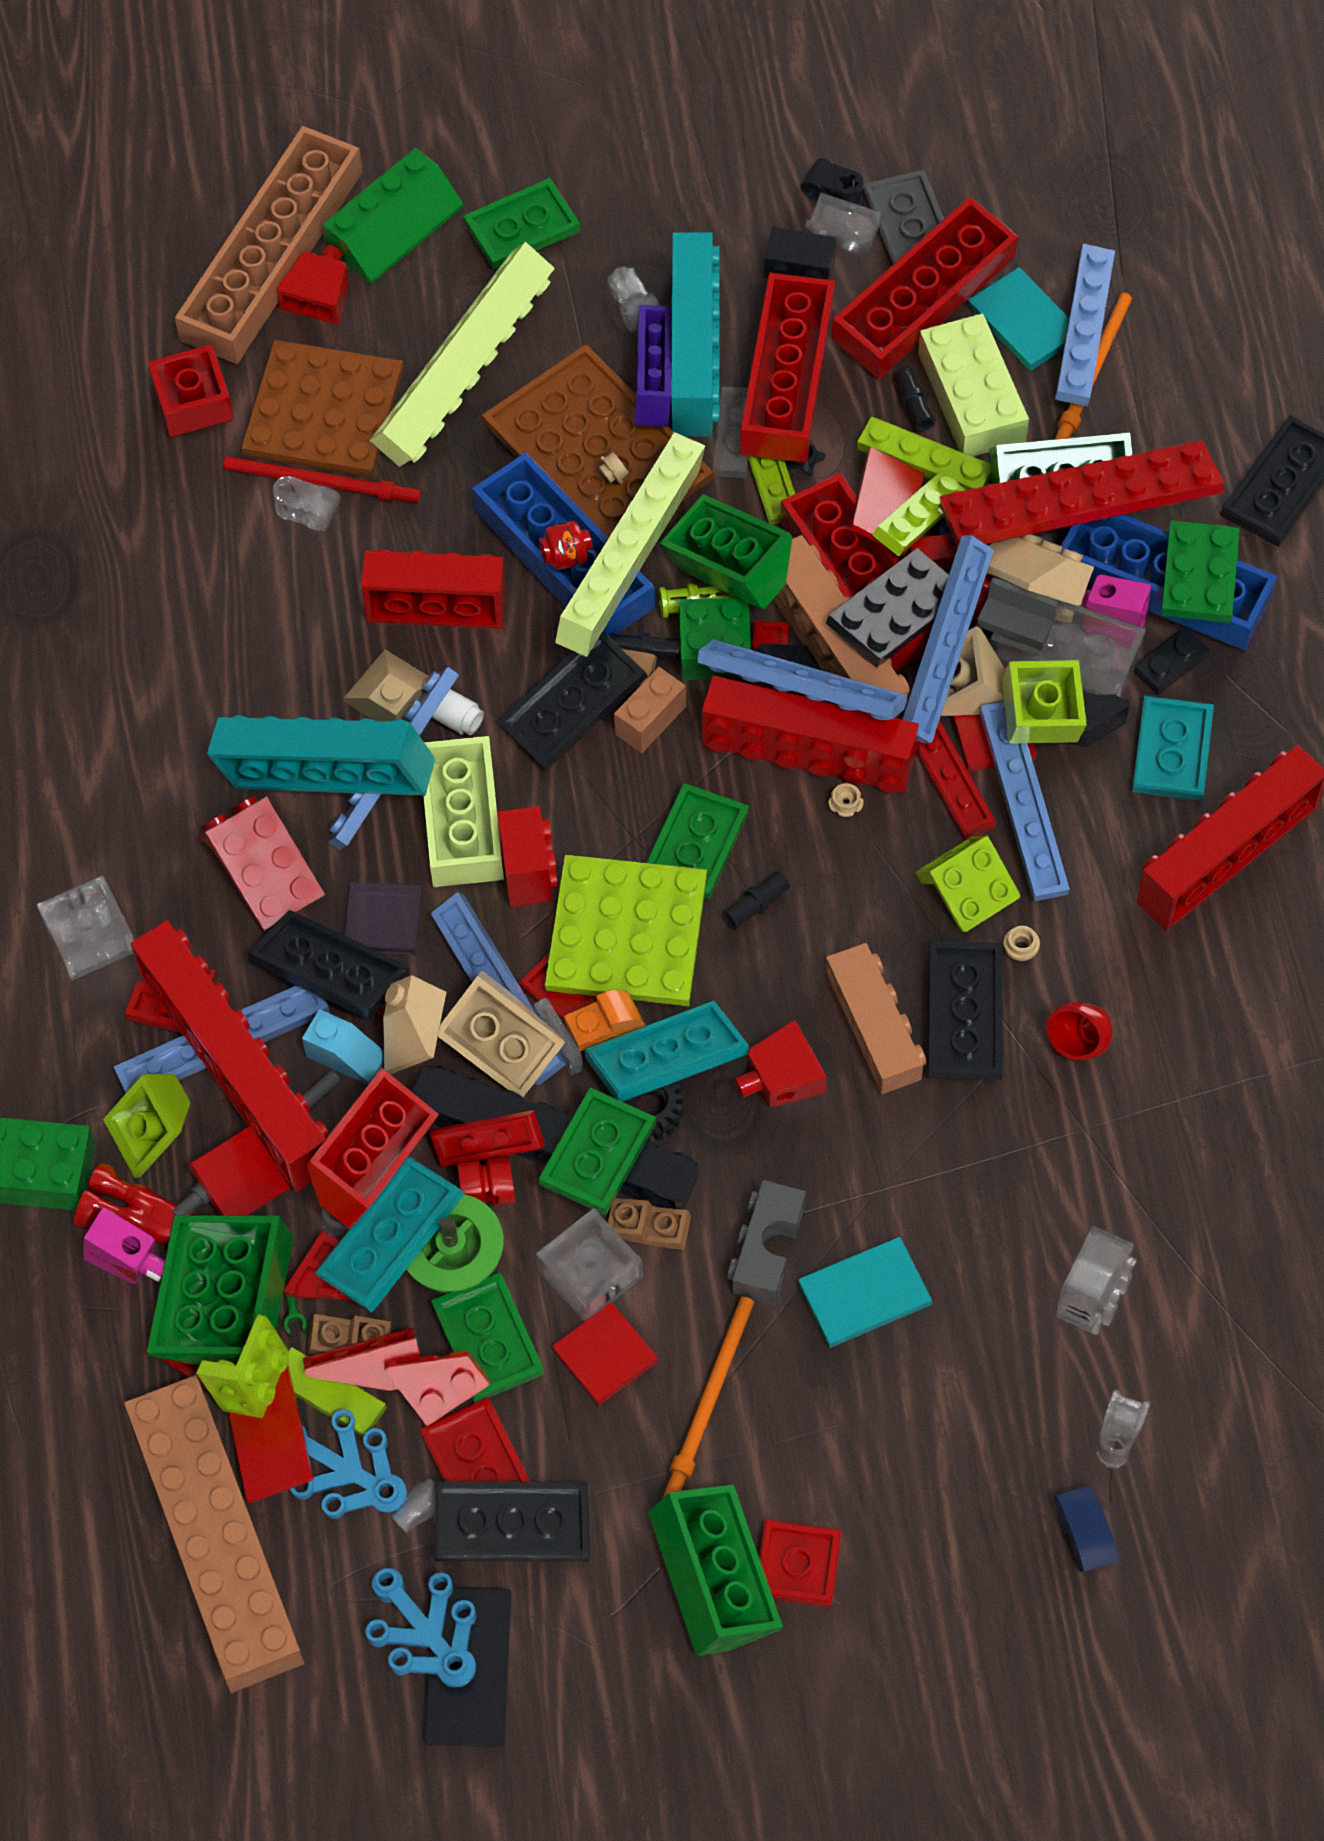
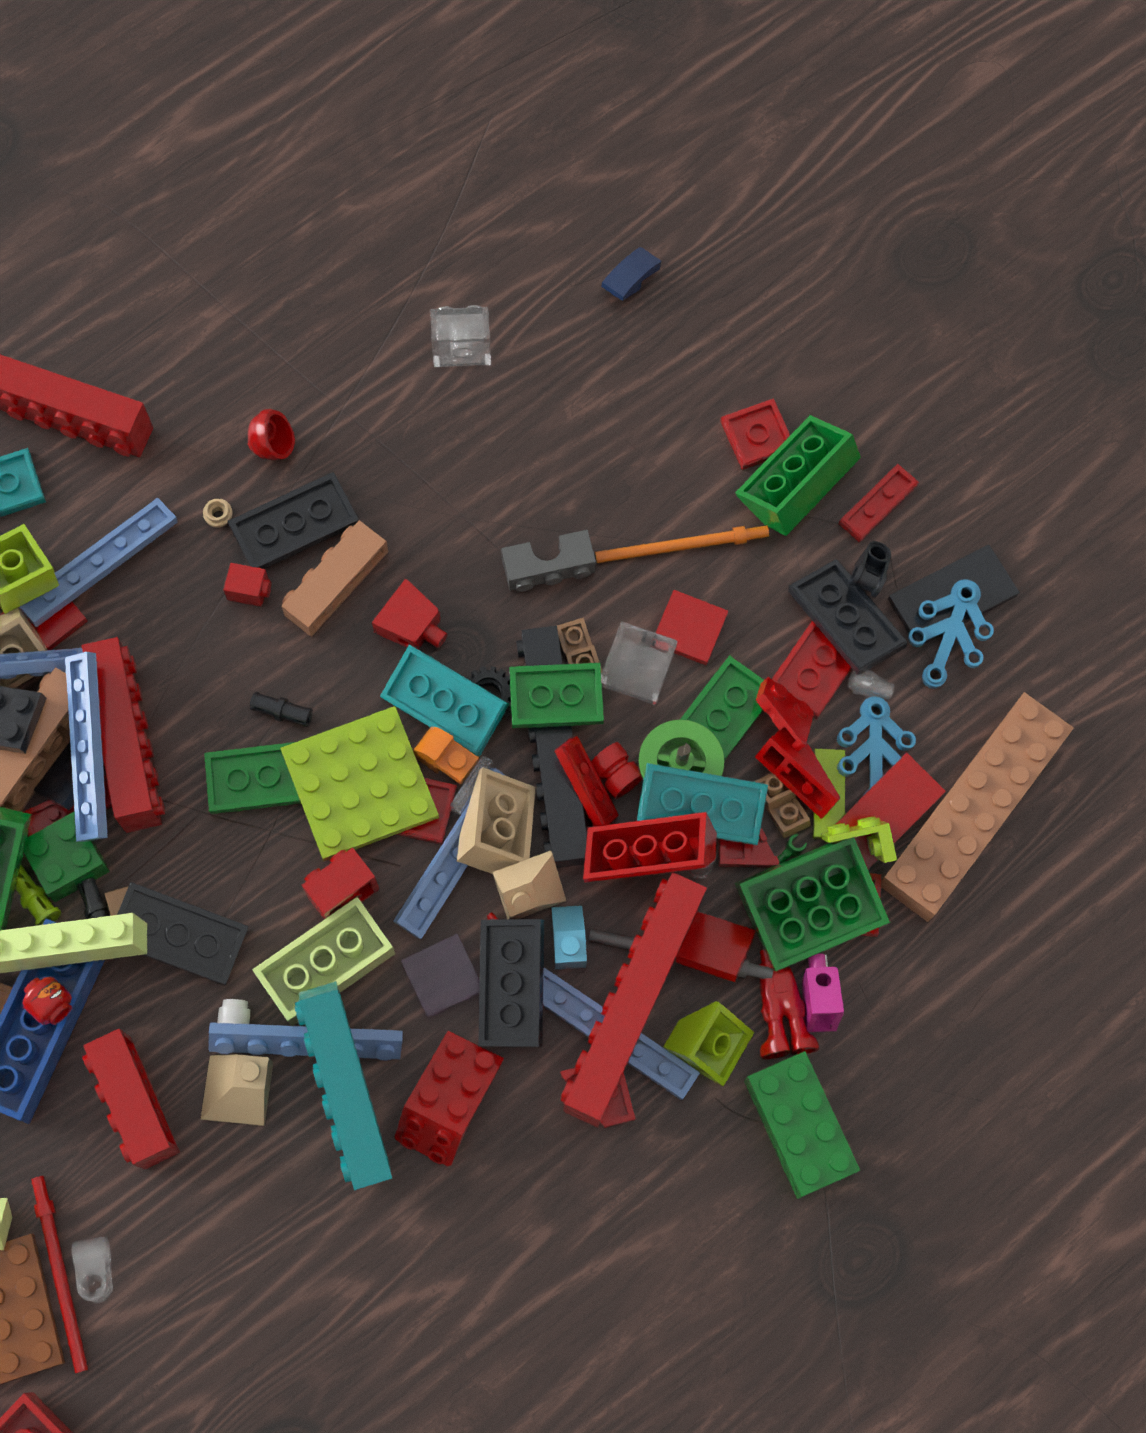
camera: 125 degrees left, 10 degrees up
(86, 927) = (583, 1192): clear brick -> none
(543, 1570) = (871, 568): none -> black piece
(632, 1652) = (878, 503): none -> red tile
(650, 710) = (156, 870): nougat brick -> none
(846, 792) = (160, 683): tan plate -> none
(864, 1292) = (545, 486): teal tile -> none
(915, 929) = (247, 584): none -> red brick
(955, 785) = (110, 614): red tile -> none
(971, 881) = (183, 571): lime bracket -> none
(1121, 1423) = (549, 284): clear piece -> none

